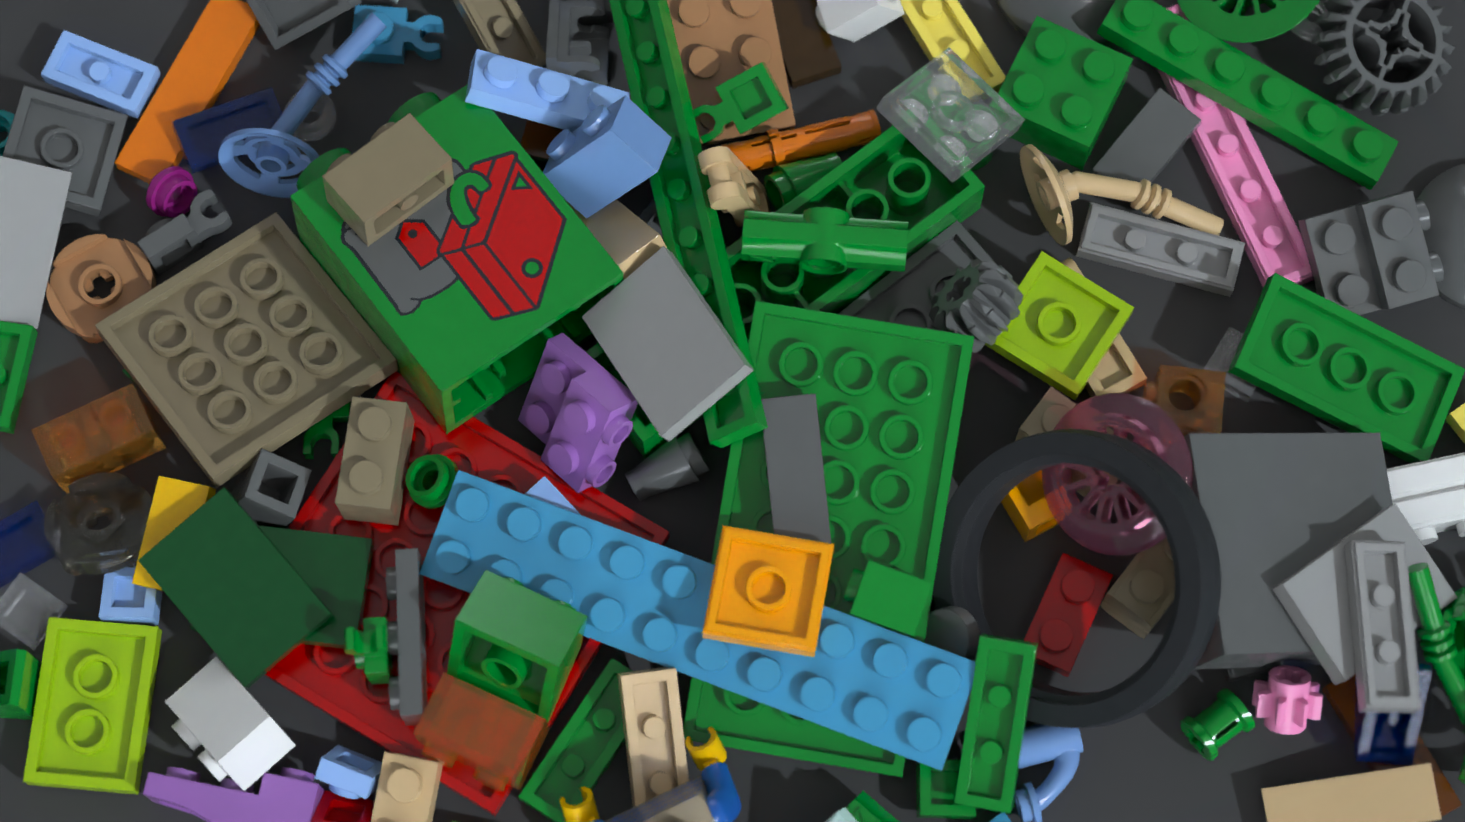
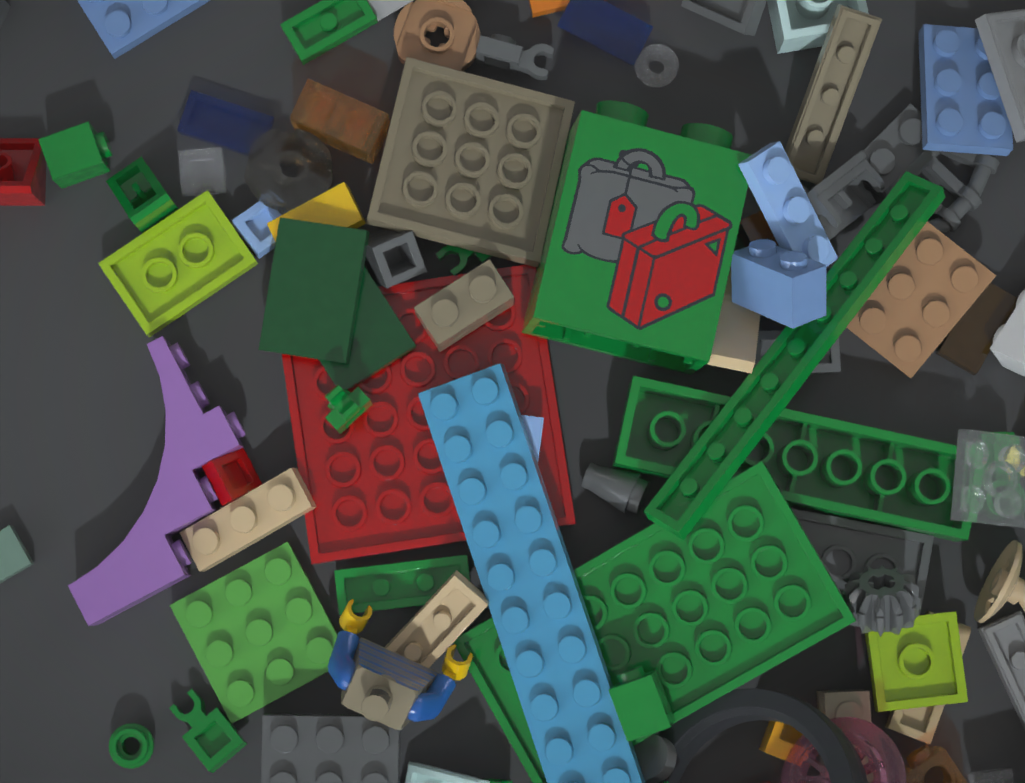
camera: 45 degrees right, 10 degrees up
(171, 192) = (533, 25): magenta plate -> none
(229, 724) = (229, 359): white brick -> none
(277, 144) = (614, 65): medium blue dish -> none
(349, 773) = (265, 455): light blue plate -> none
(388, 178) = (642, 162): dark tan brick -> none
(399, 34) = (751, 65): dark azure plate -> none
(408, 636) = (372, 421): dark grey plate -> none
(423, 474) = (481, 341): green plate -> none
(481, 733) = (349, 516): clear orange brick -> none
(516, 643) = (420, 494): green slope -> none
(577, 414) = (600, 405): medium lavender plate -> none
(667, 344) = (686, 429): light grey tile -> none
(732, 184) = (829, 383): tan plate -> none
(746, 101) = (896, 337): green plate -> none
(768, 591) = (581, 625): light orange tile -> none
(795, 177) = (875, 411): green cone -> none
(796, 468) = (668, 583): dark grey tile -> none
(807, 141) = (888, 382): orange pin -> none
(824, 241) = (841, 470): green piece -> none

